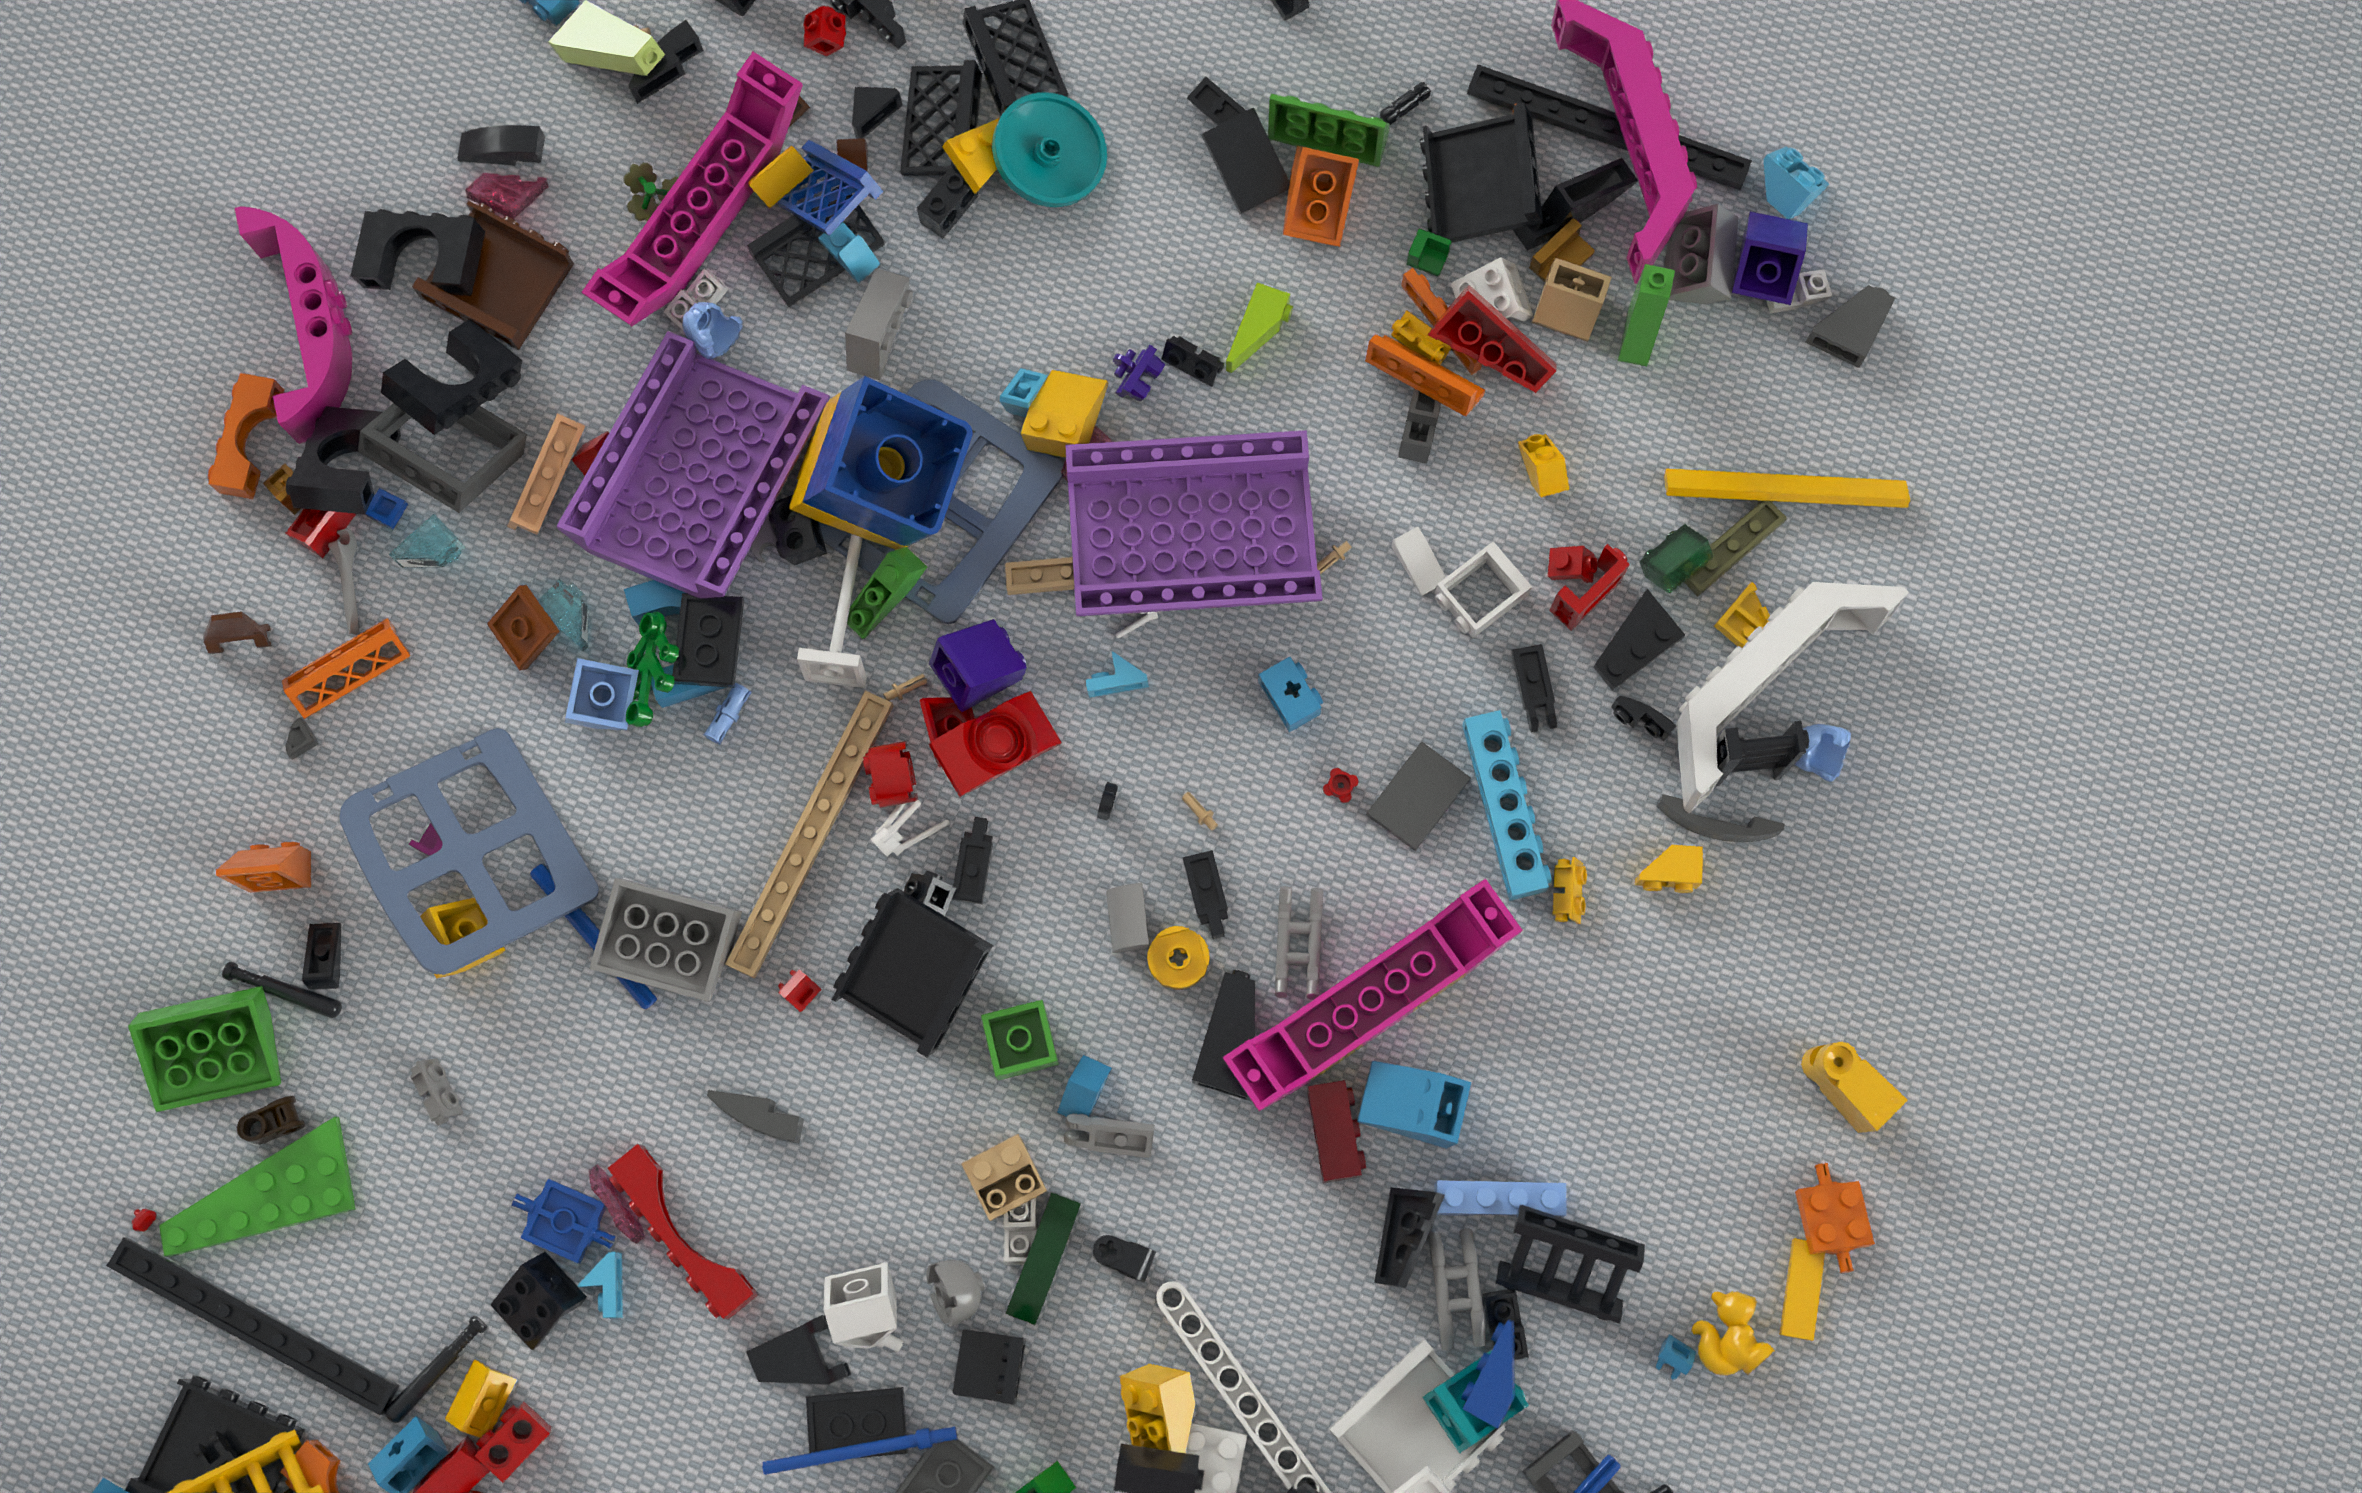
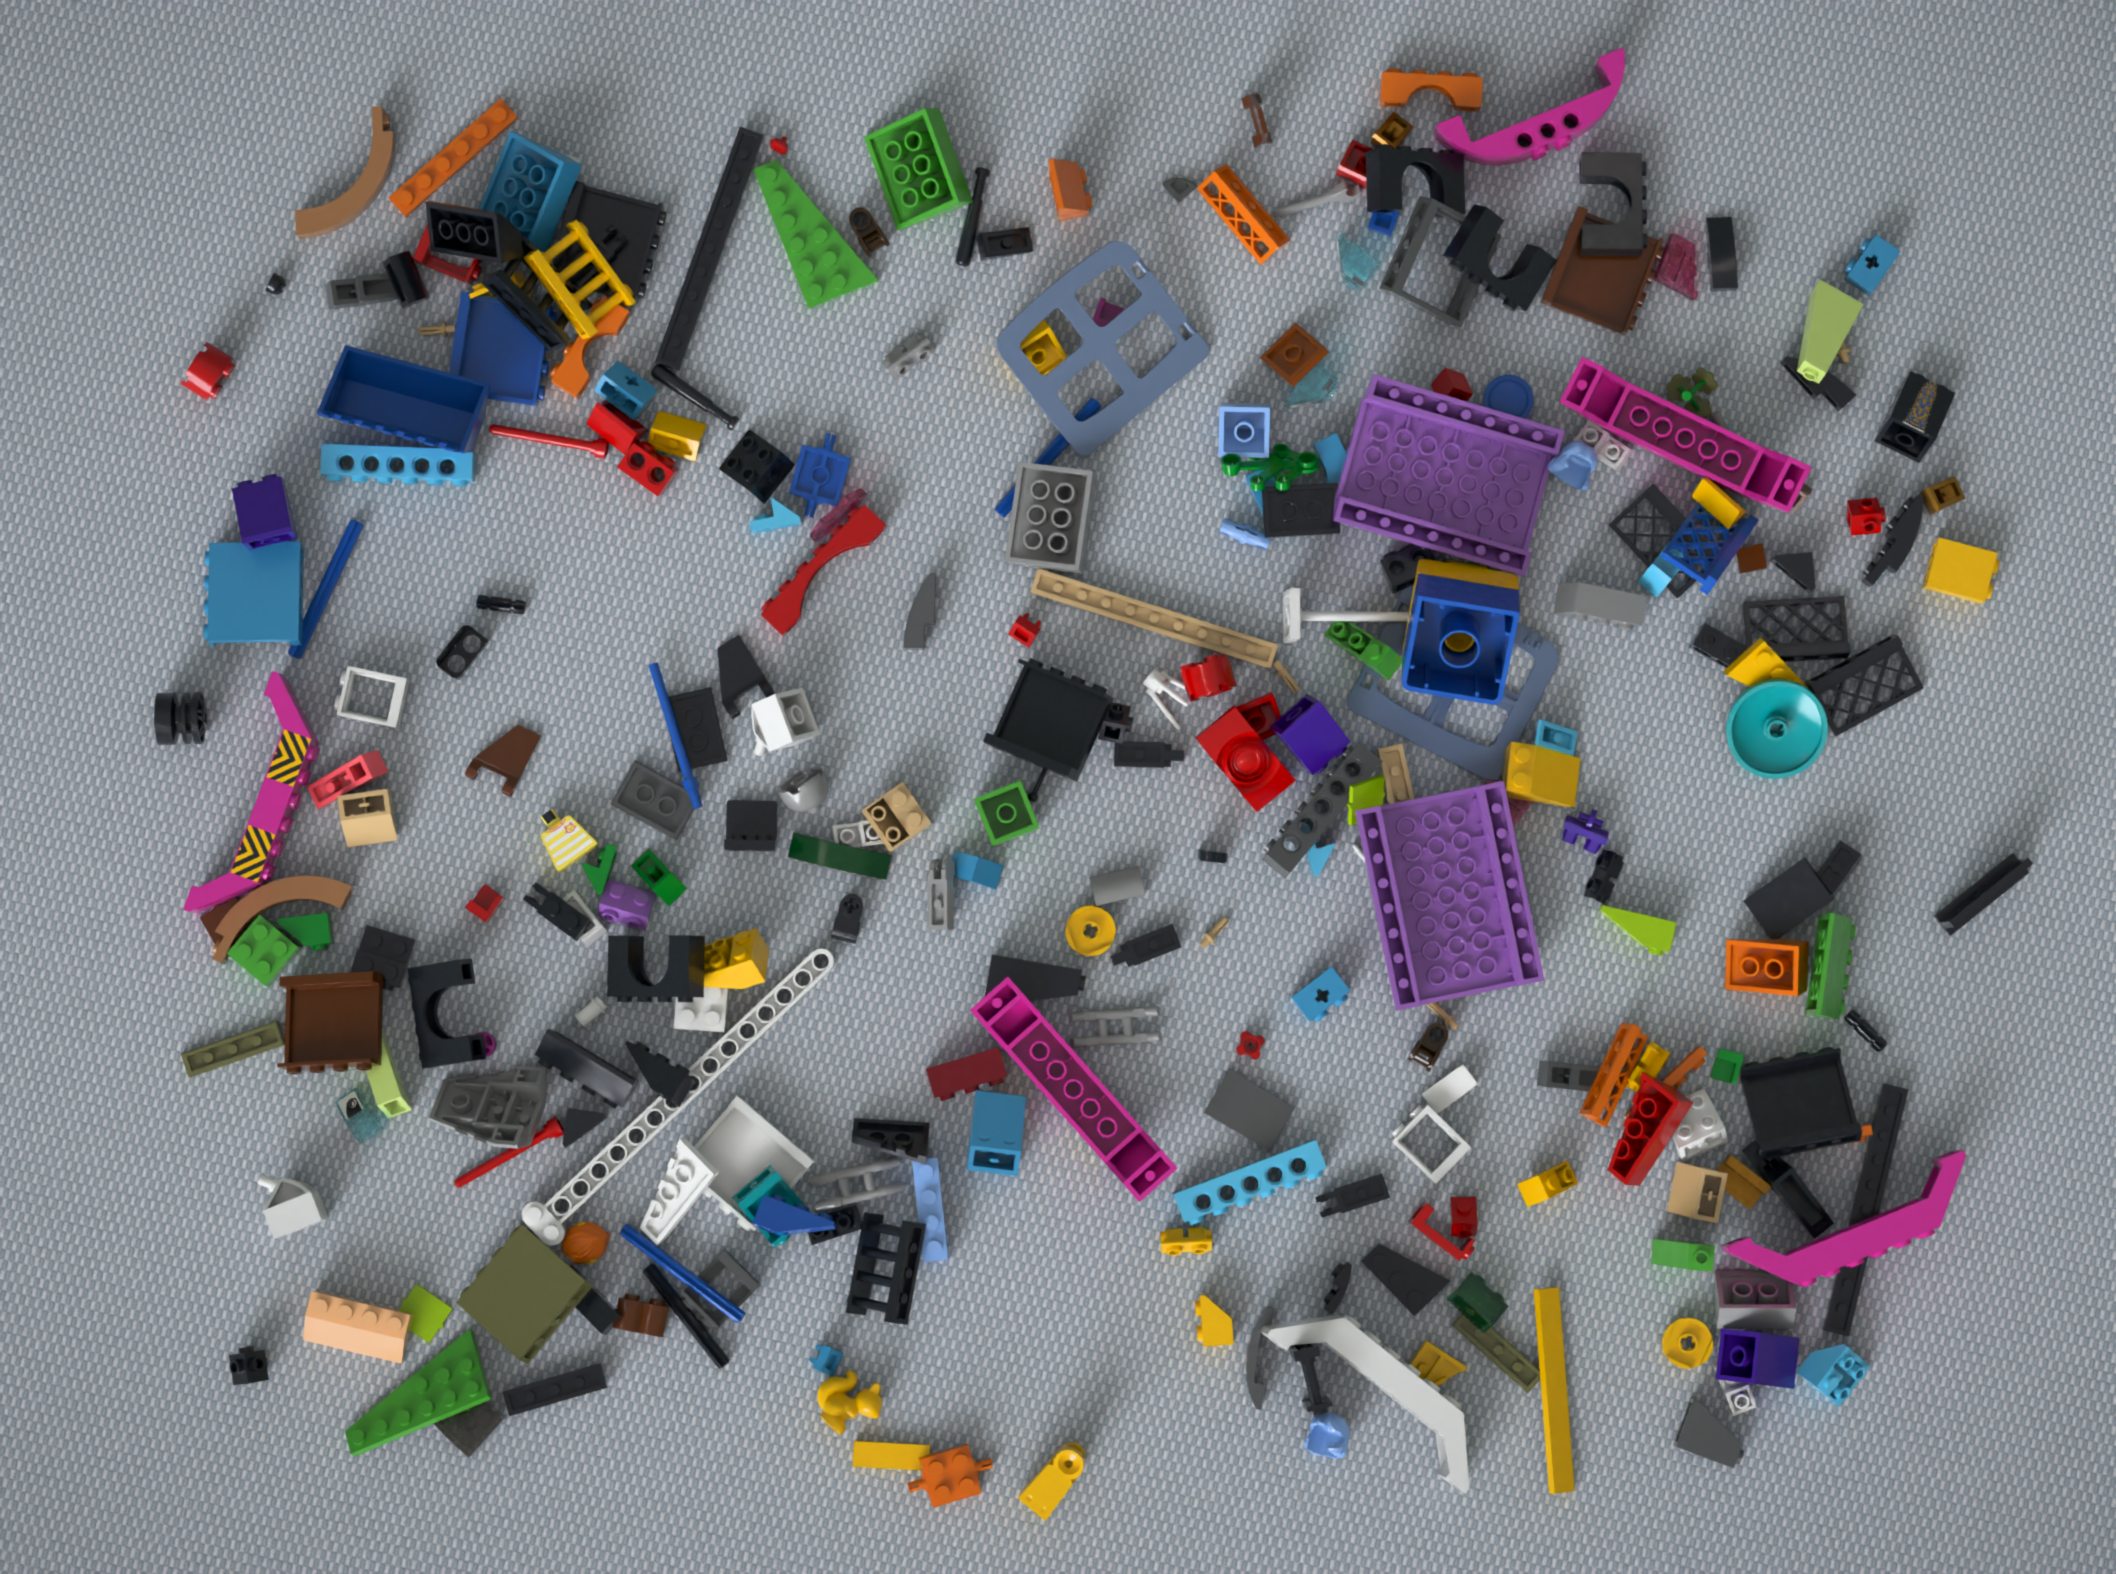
camera: 80 degrees right, 10 degrees up
(546, 474) = (1428, 348): light nougat fence -> none
(614, 391) = (1509, 395): none -> blue piece
(1001, 1005) = (1033, 795): none -> black hinge
(1024, 607) = (1285, 861): none -> dark grey brick
(1061, 610) = (1365, 795): none -> lime piece
(1368, 578) = (1428, 1047): none -> dark brown piece
(1739, 351) = (1700, 1336): none -> yellow plate

